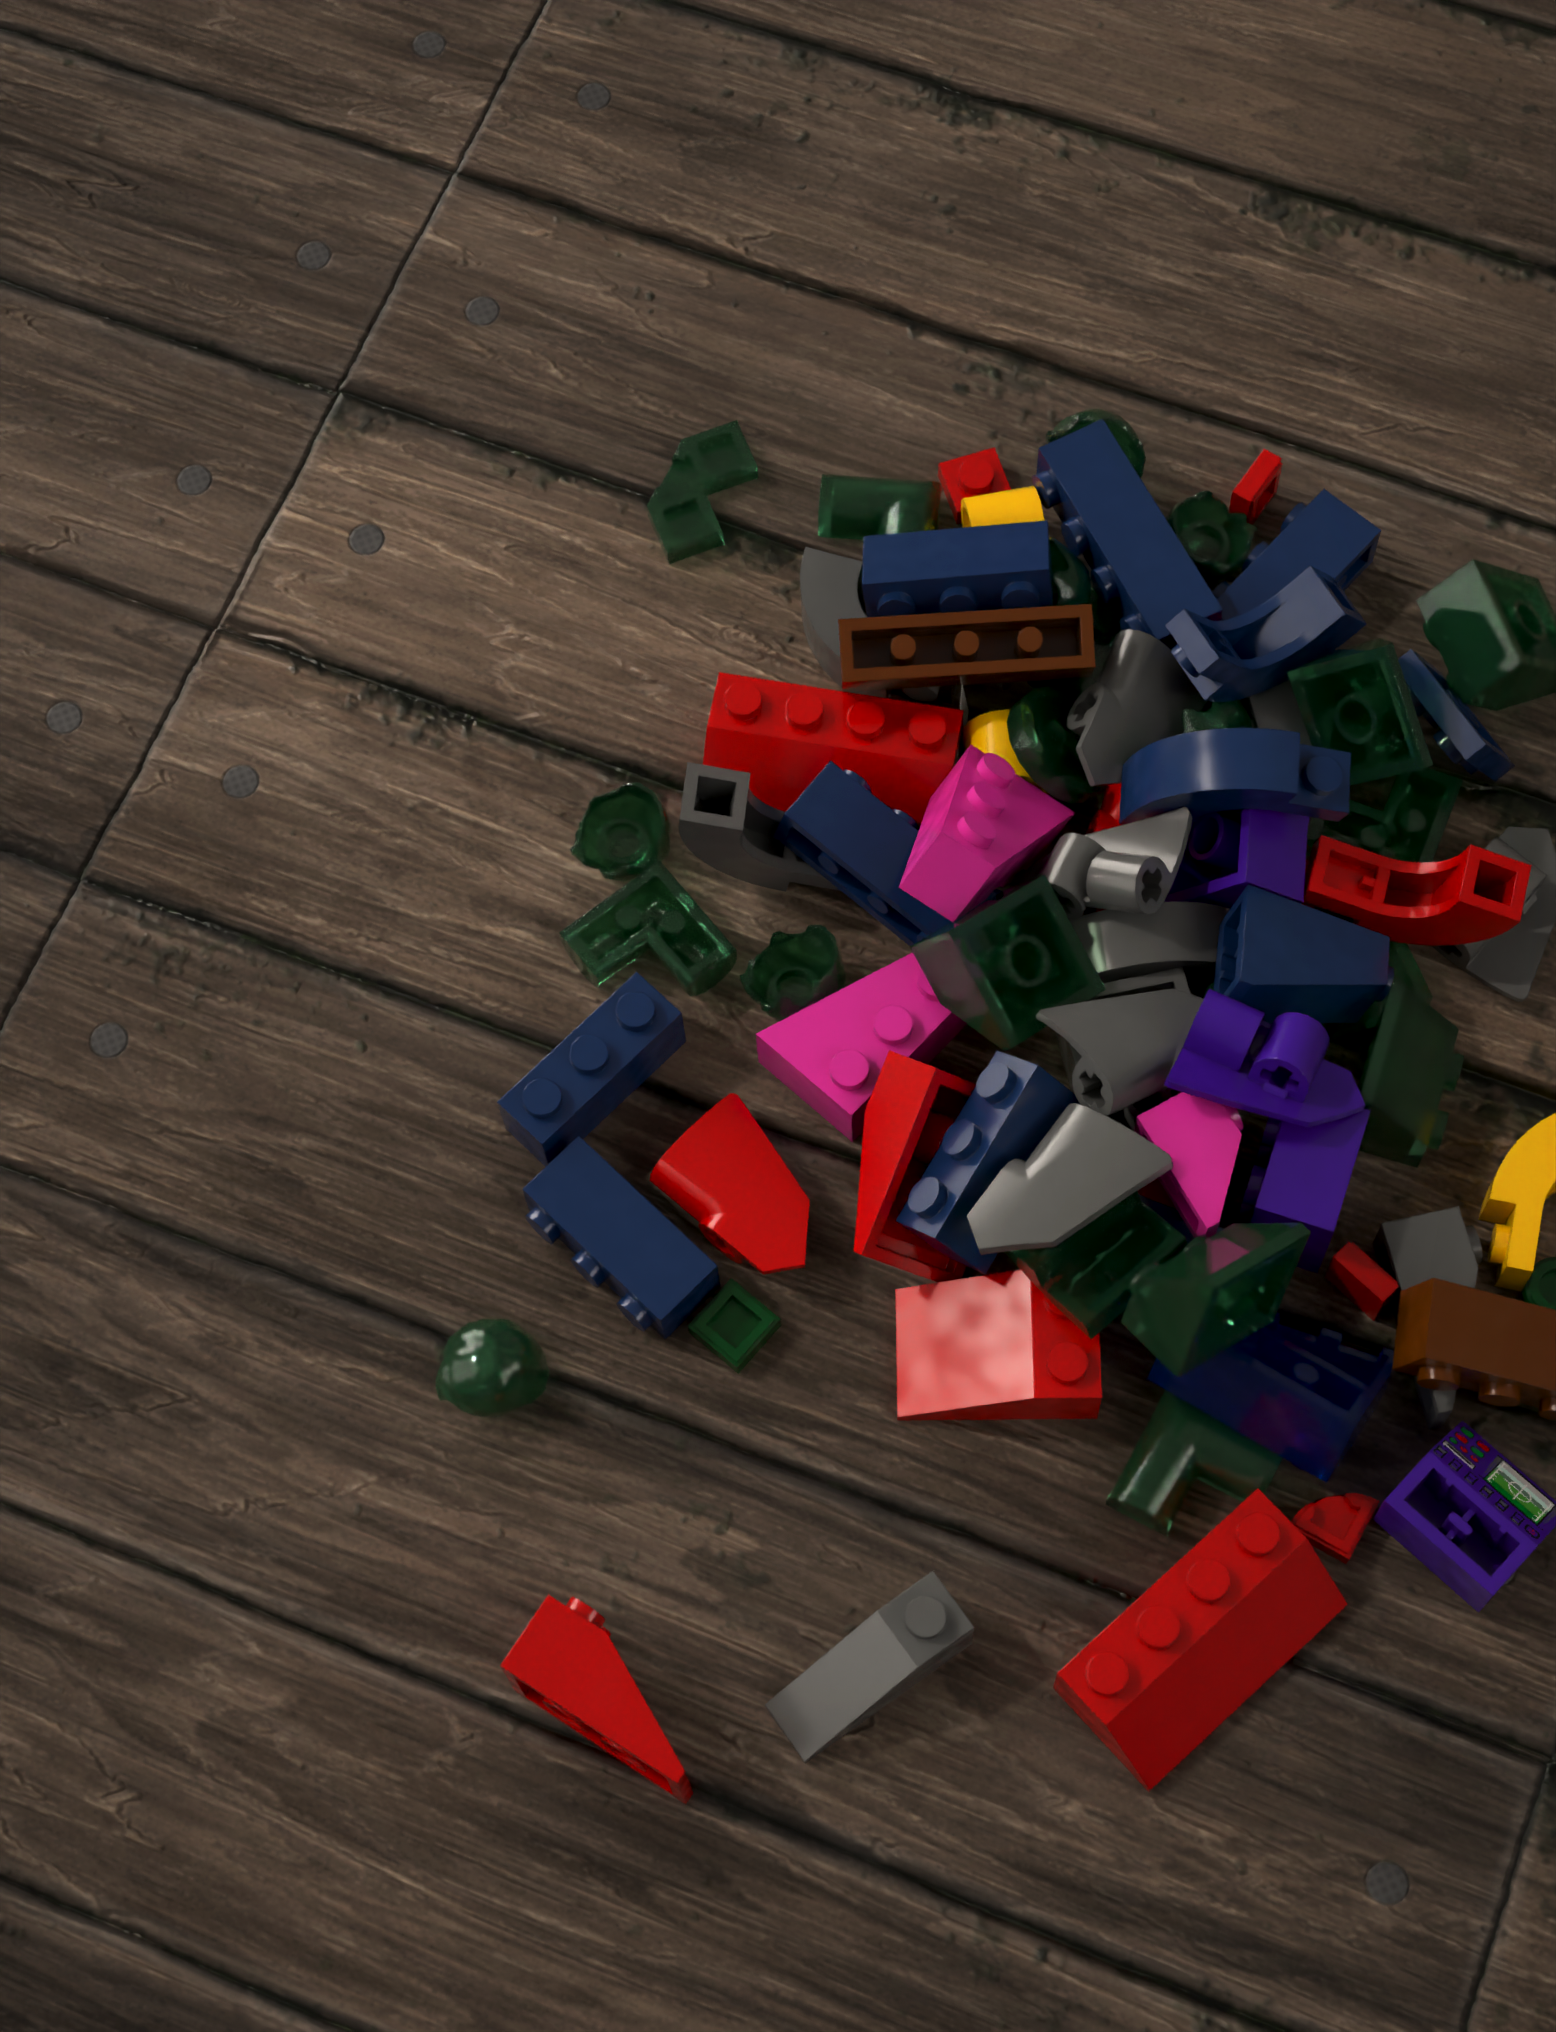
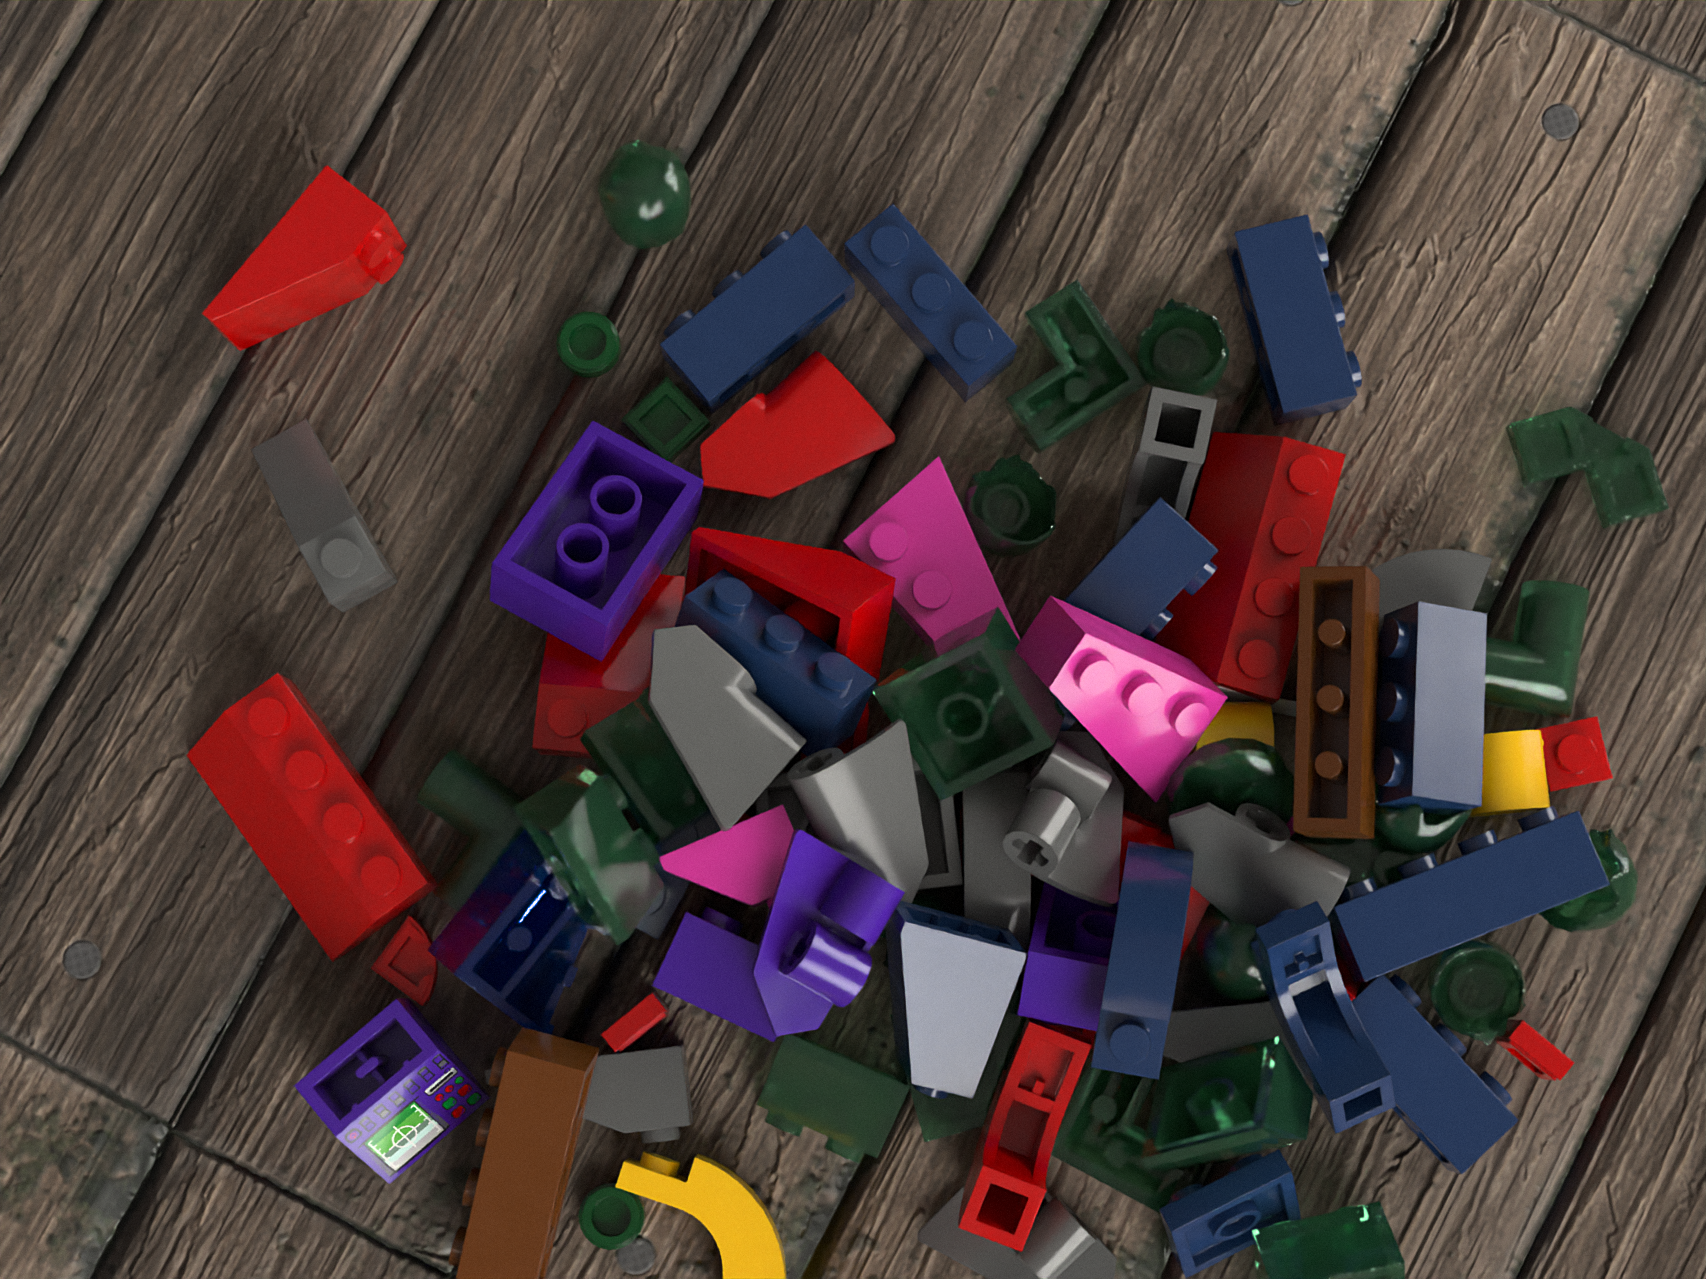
camera: 90 degrees right, 15 degrees up
(584, 742) = (1293, 319): none -> dark blue brick
(658, 1413) = (588, 344): none -> dark green tile
(878, 1356) = (595, 540): none -> dark purple brick

